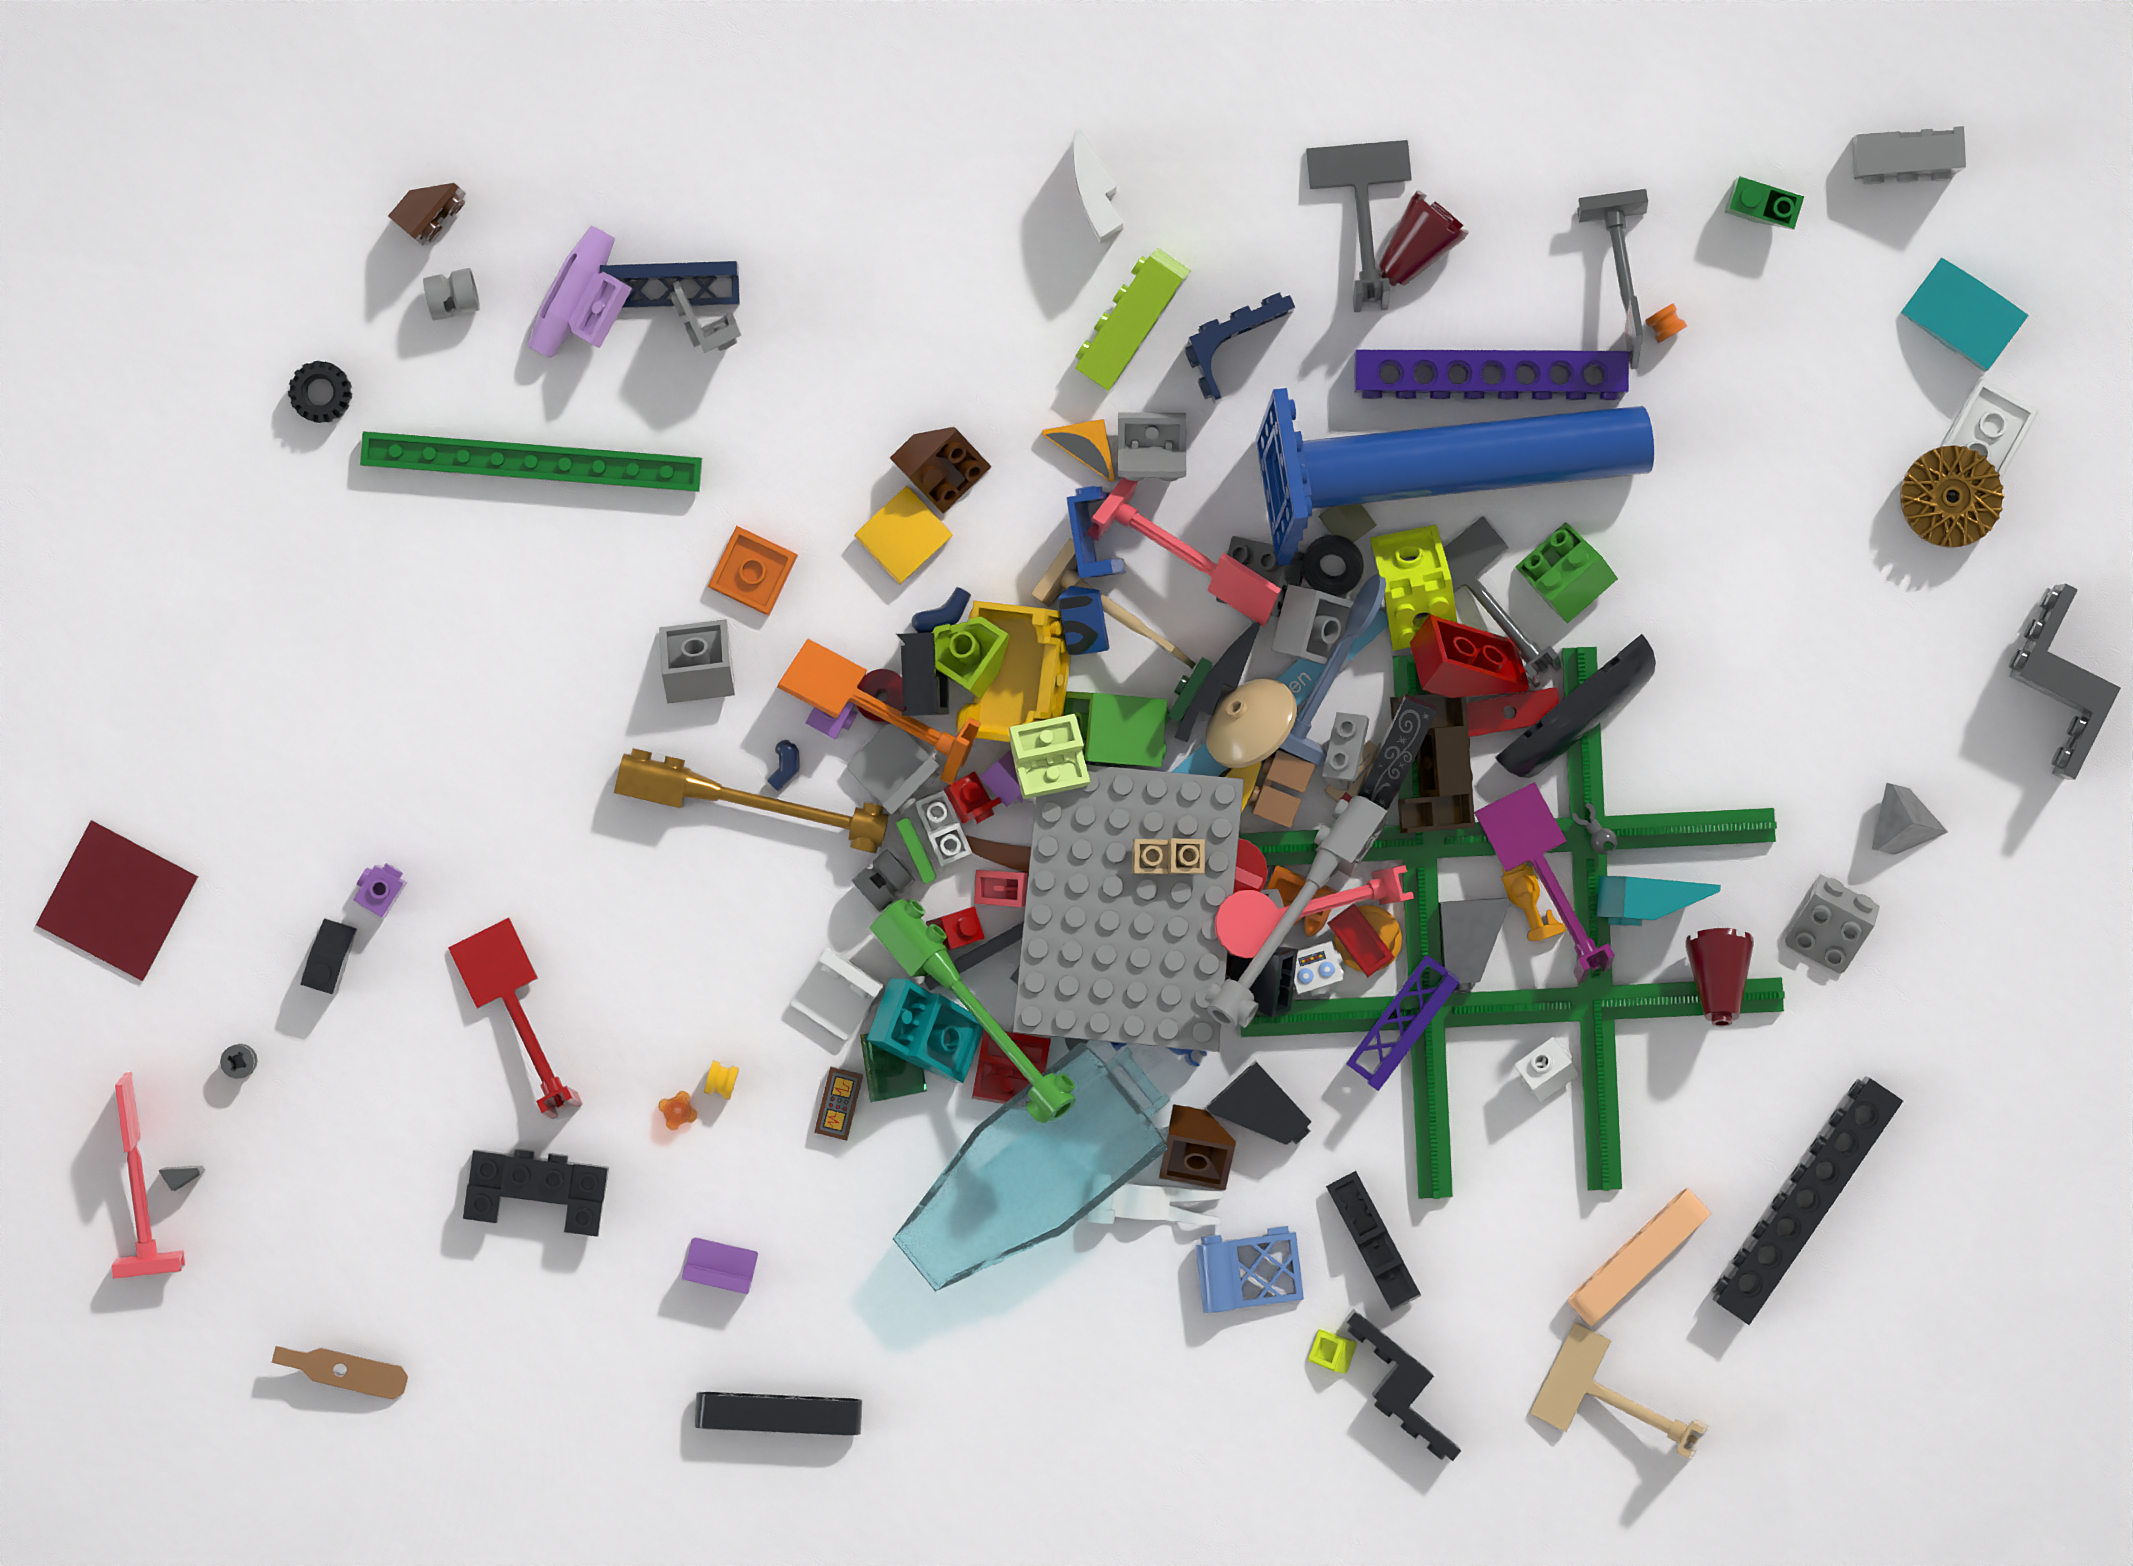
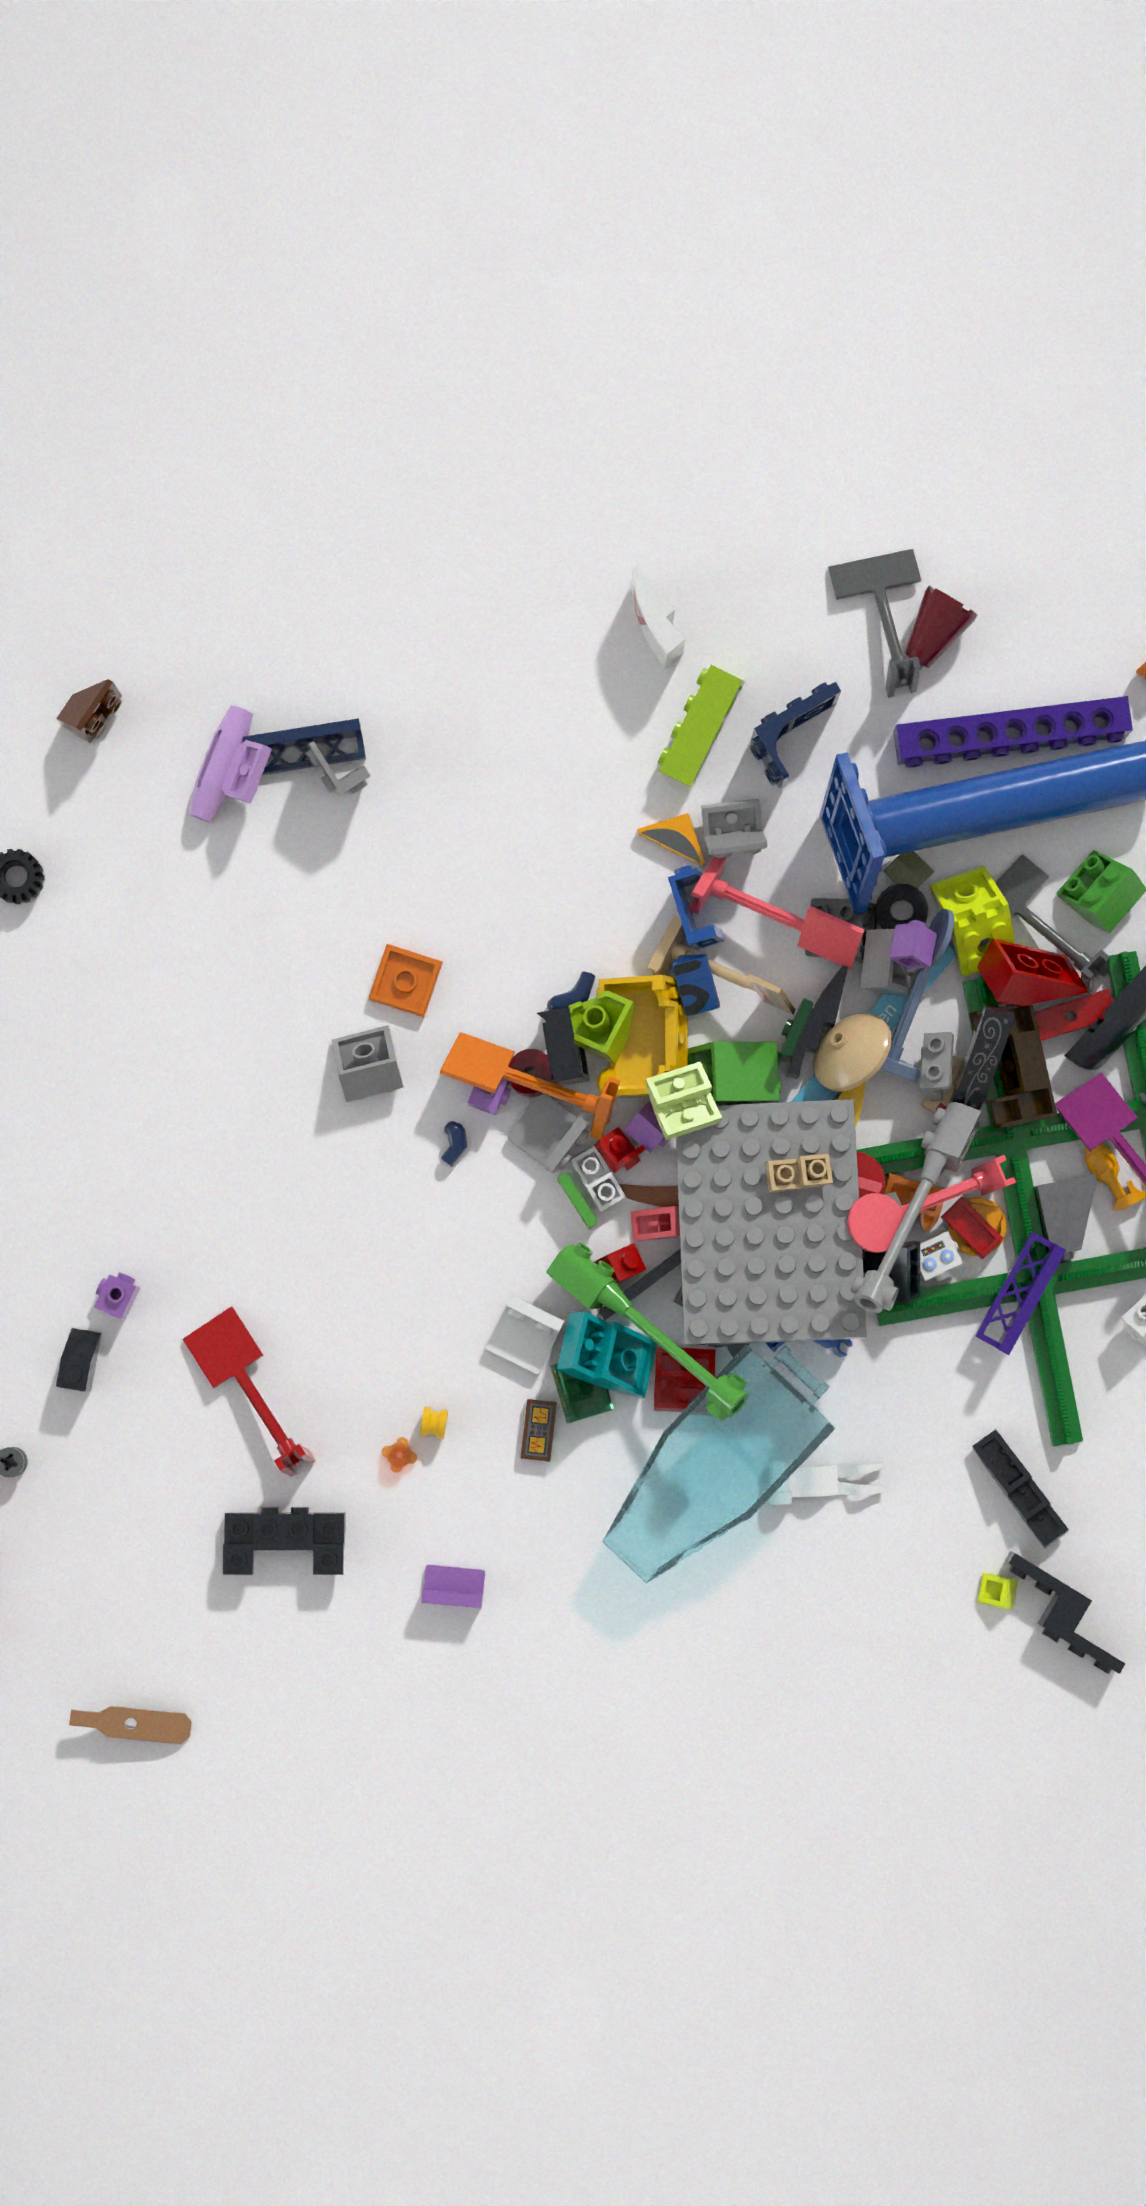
camera: 10 degrees left, 5 degrees down
(451, 294) = (118, 778): light grey wheel -> none
(531, 461) = (203, 912): green plate -> none
(672, 782) = (358, 1170): pearl gold bar -> none
(778, 1413) = (521, 1710): black beam -> none
(892, 871) = (559, 1221): dark grey wheel -> none
(903, 535) = (530, 933): yellow slope -> none
(941, 465) = (555, 869): reddish brown slope -> none
(1197, 1149) = (859, 1429): reddish brown slope -> none
(1221, 1274) = (891, 1533): medium blue piece -> none
(1261, 1106) = (906, 1383): black slope -> none
(1285, 771) = (885, 1091): medium nougat piece -> none
(1334, 613) = (913, 945): none -> medium lavender brick
(1613, 210) = (1096, 581): dark grey piece -> none

